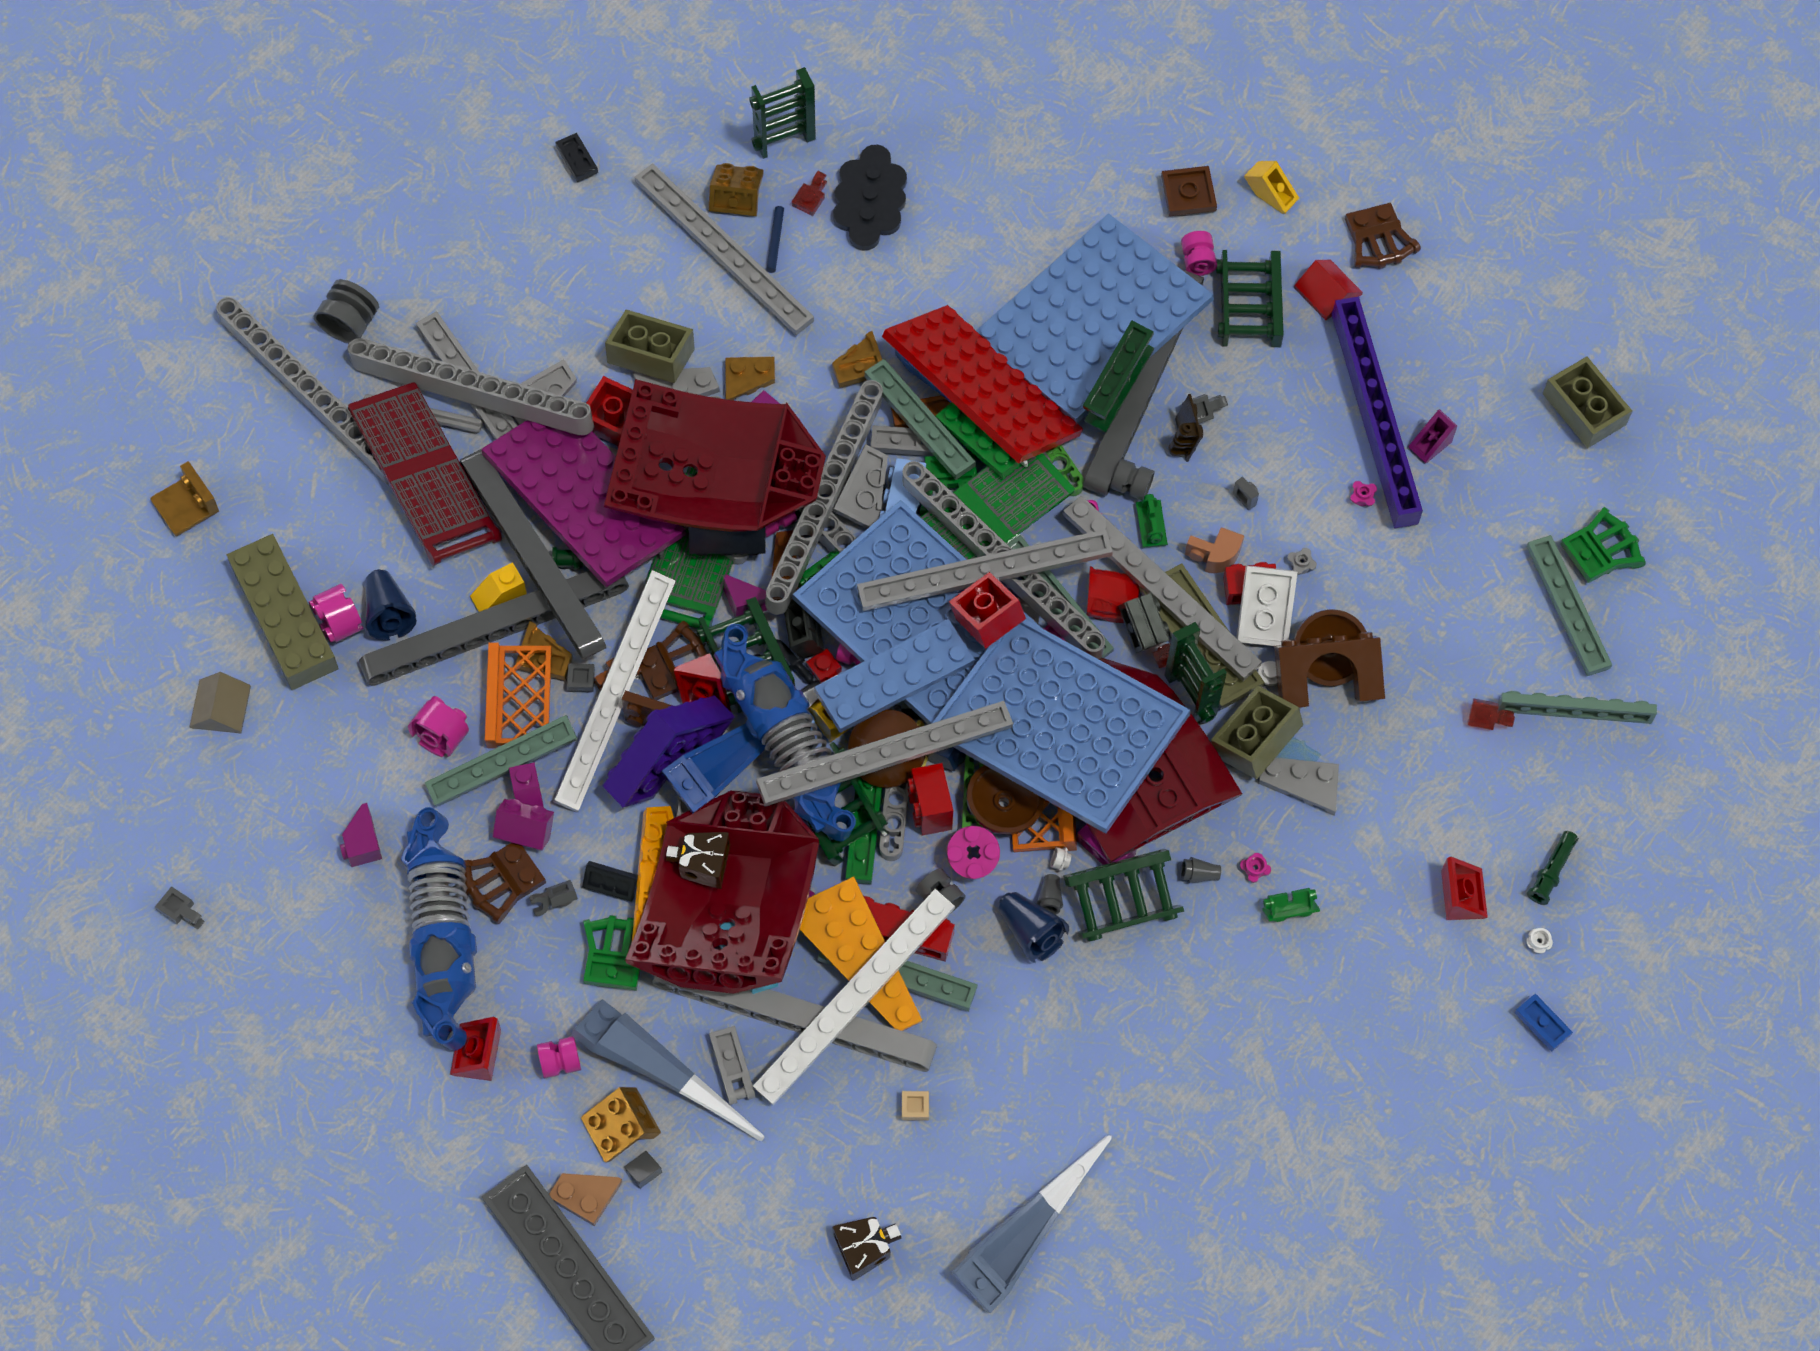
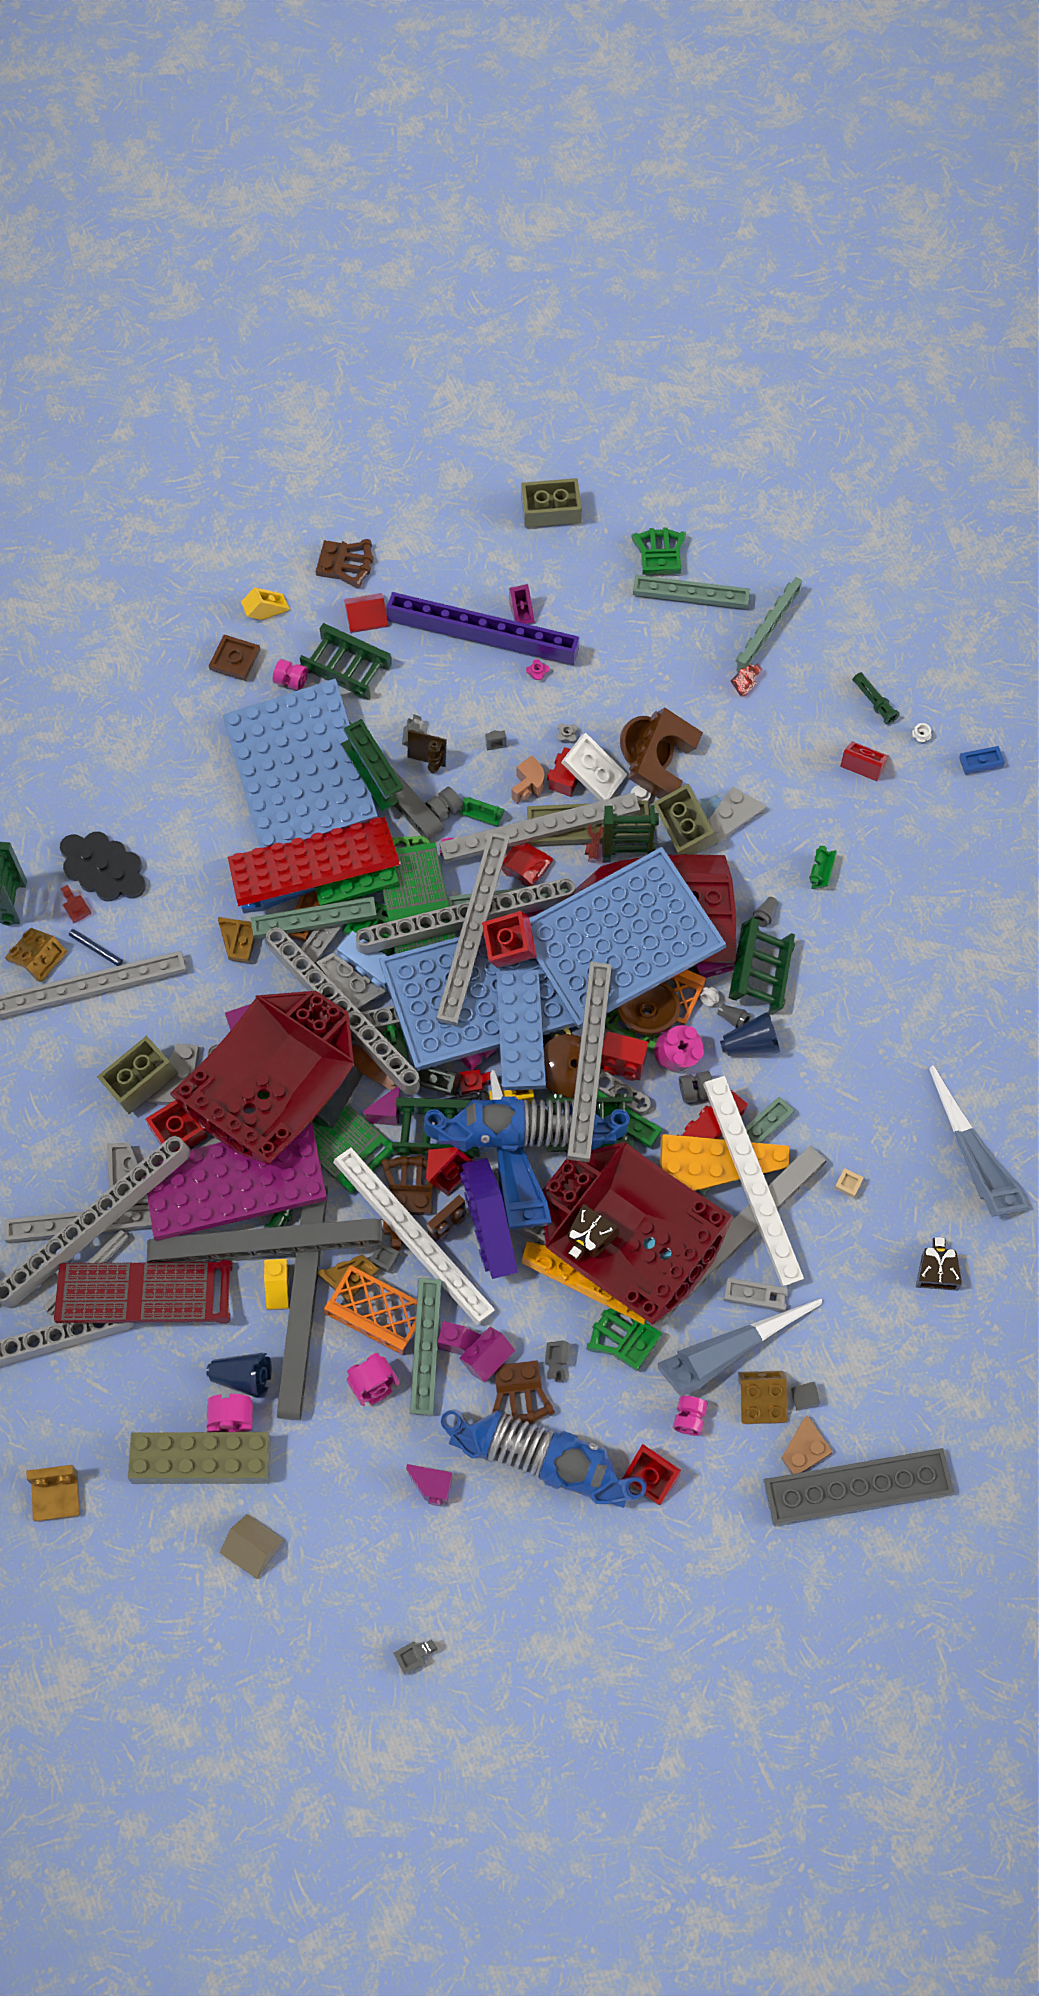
camera: 60 degrees left, 0 degrees up
(610, 881) = (565, 1313): black plate -> none
(748, 374) = (199, 1021): pearl gold wing -> none
(1144, 622) = (561, 851): pearl dark grey brick -> none
(1255, 860) = (784, 872): dark pink plate -> none

